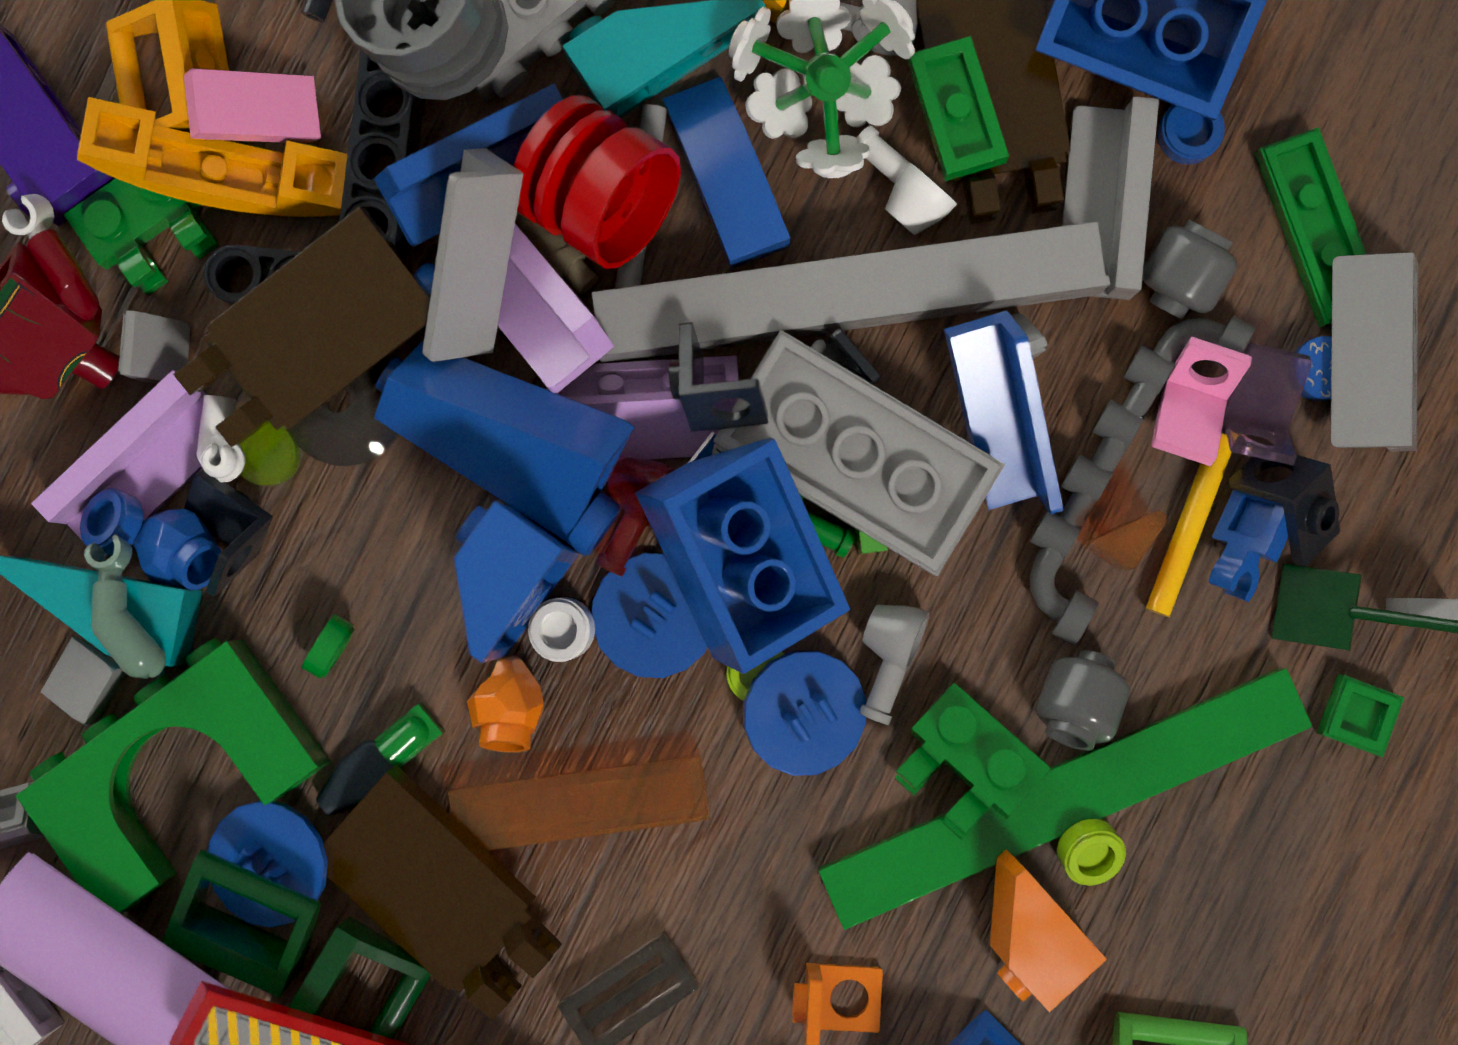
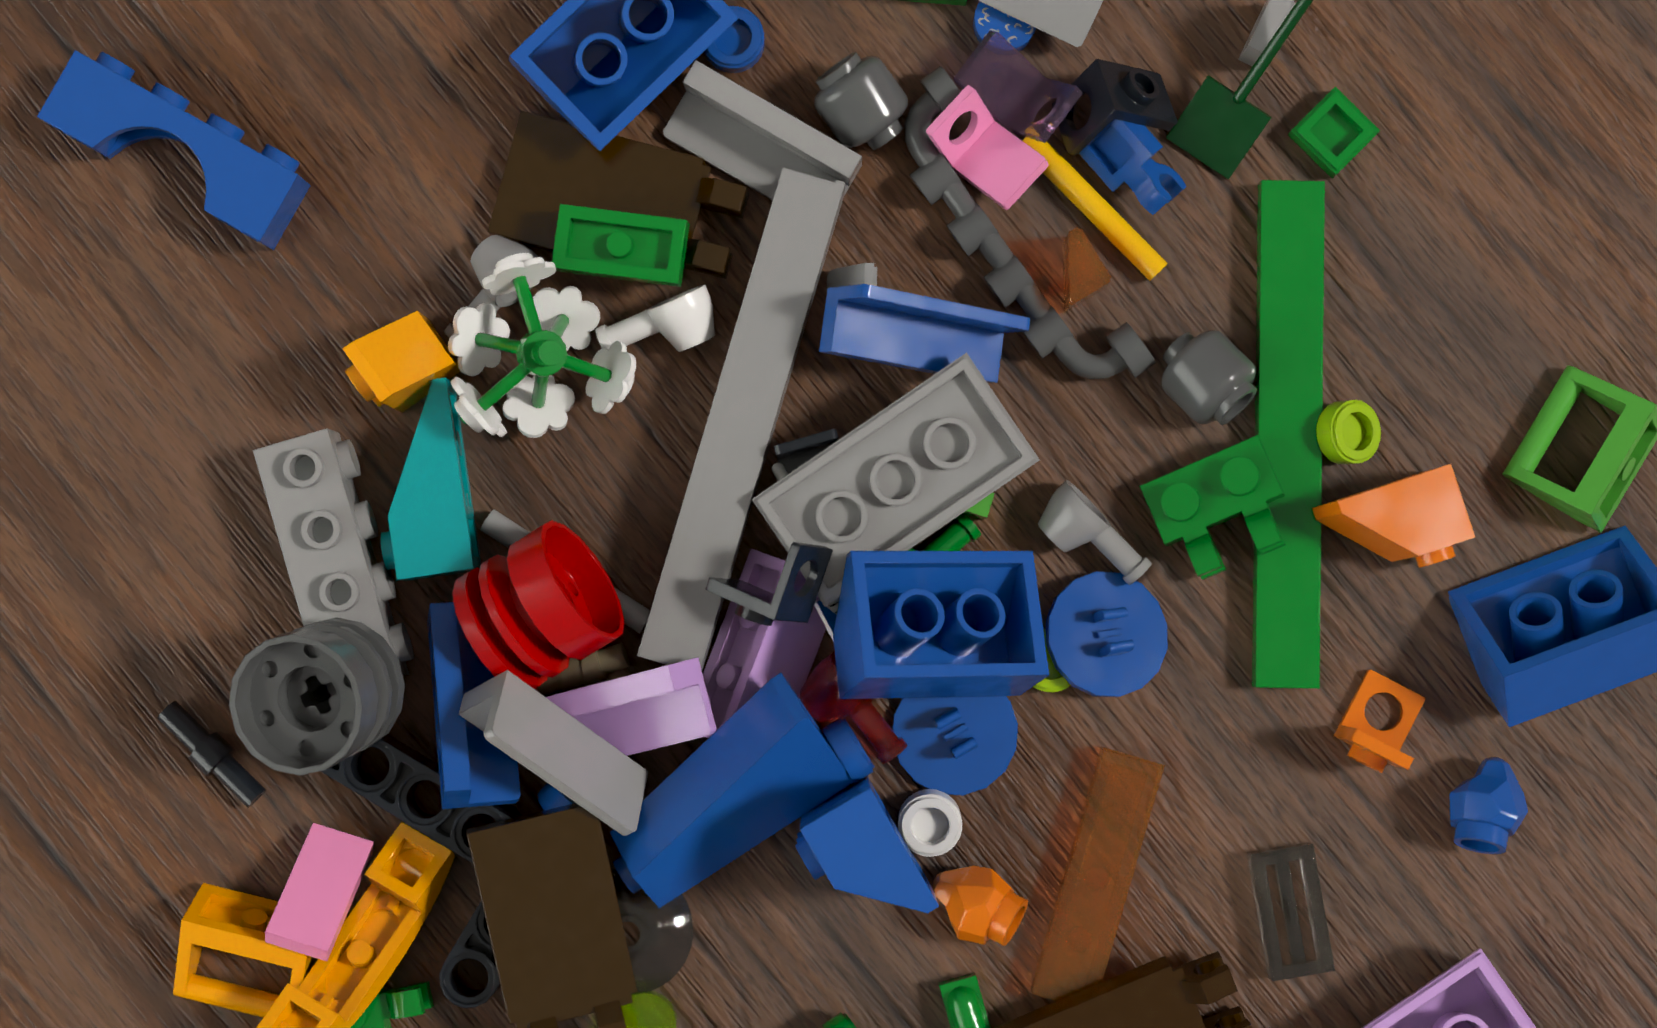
camera: 70 degrees left, 0 degrees up
(727, 173) = (578, 481): blue slope -> none

